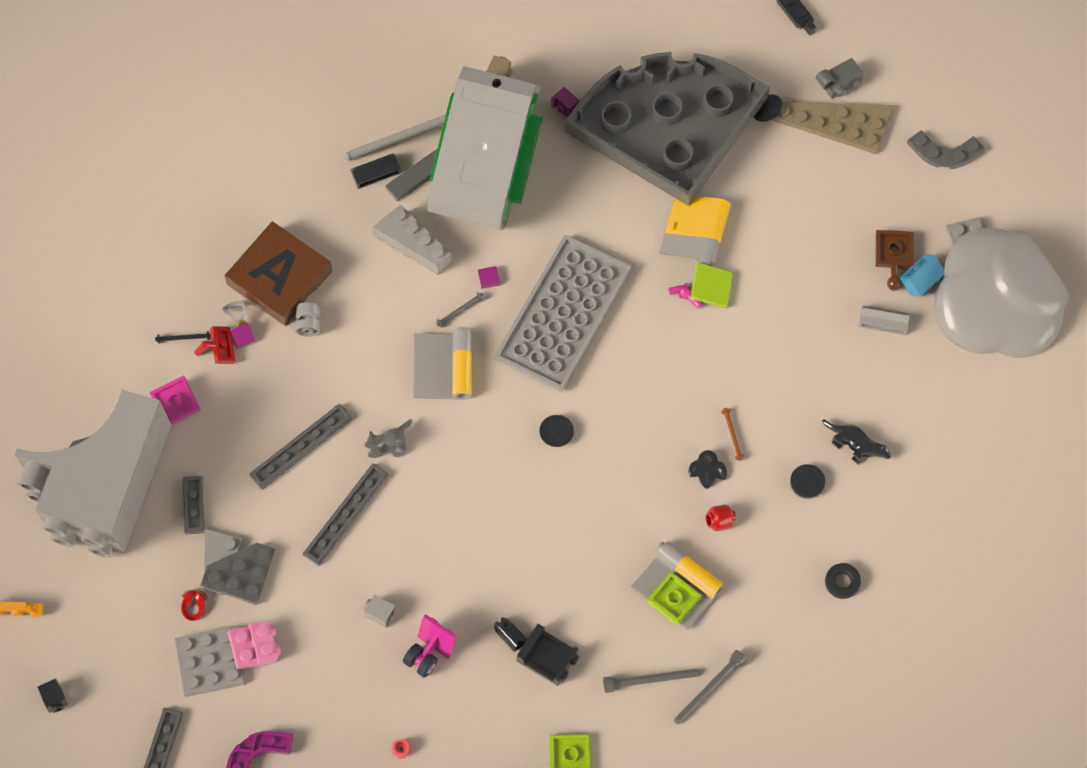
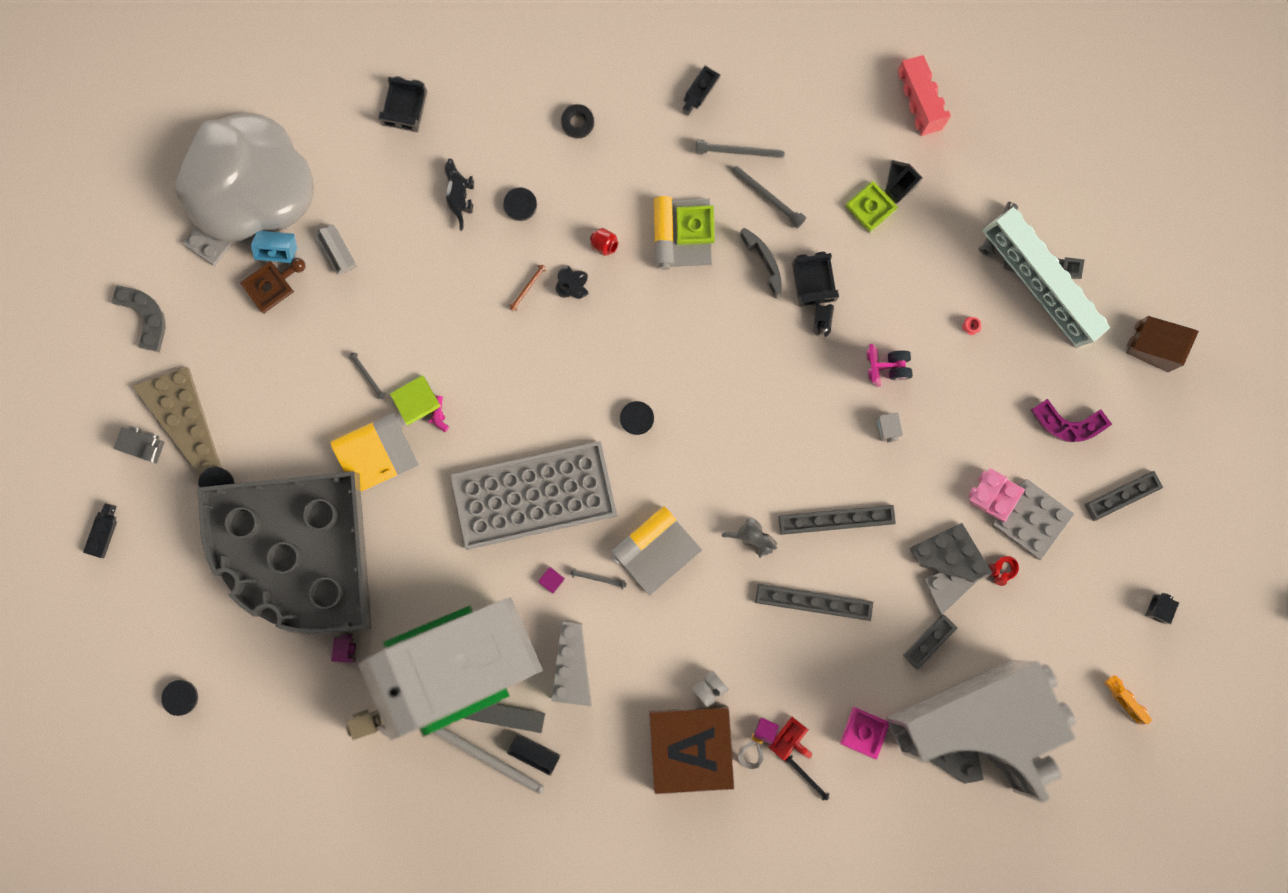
camera: 130 degrees left, 15 degrees up
(624, 630) = (753, 241): none -> dark grey slope
(762, 268) = (353, 356): none -> dark grey axle
(789, 699) = (700, 89): none -> black hinge
(968, 458) = (403, 104): none -> black panel

